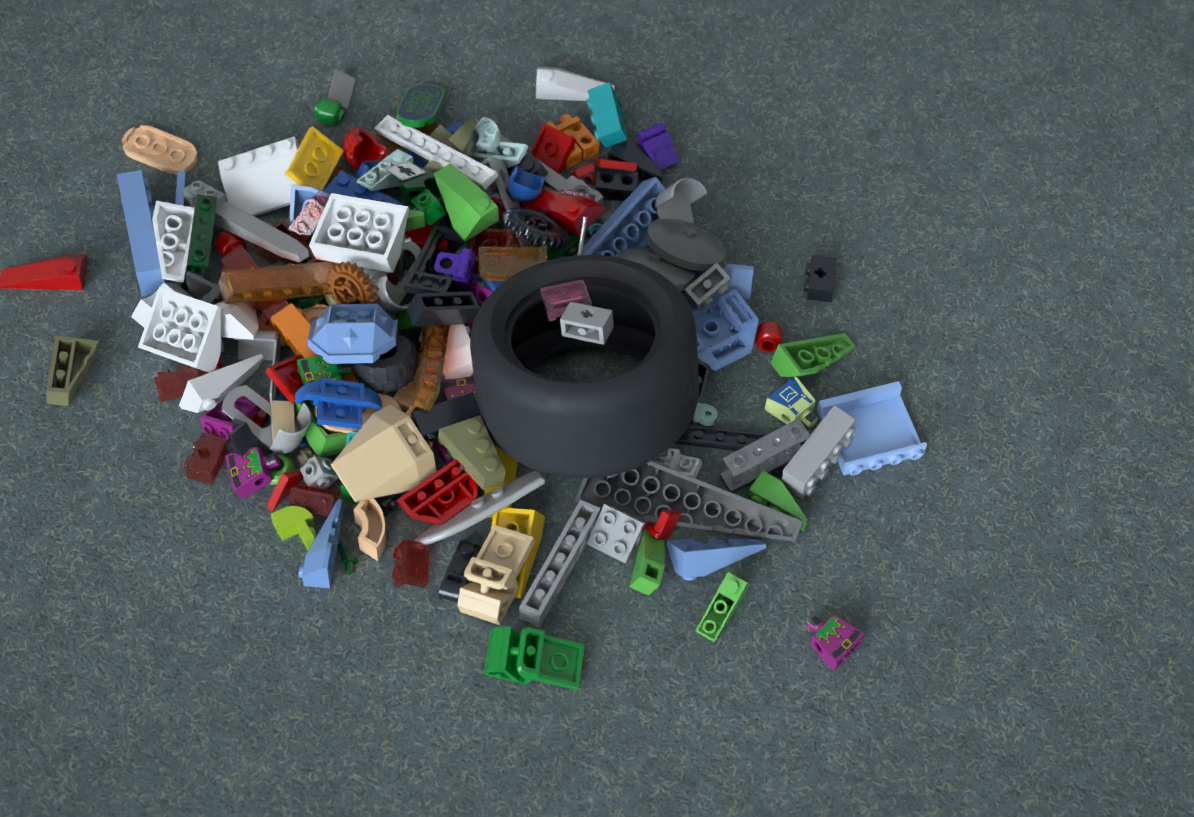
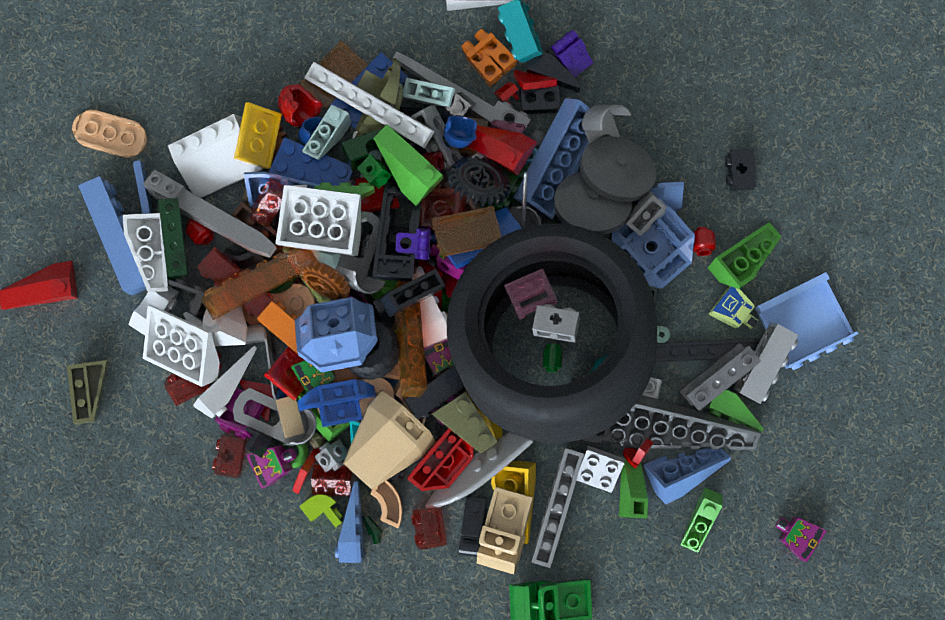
camera: 10 degrees left, 25 degrees up
(329, 111) = (258, 65): green head -> none
(342, 88) = (263, 37): light grey slope -> none
(405, 170) = (345, 134): sticker -> none
(420, 105) = (342, 45): tile -> none
(488, 135) = (414, 74): light aqua tile -> none
(553, 147) = (474, 73): red tile -> none

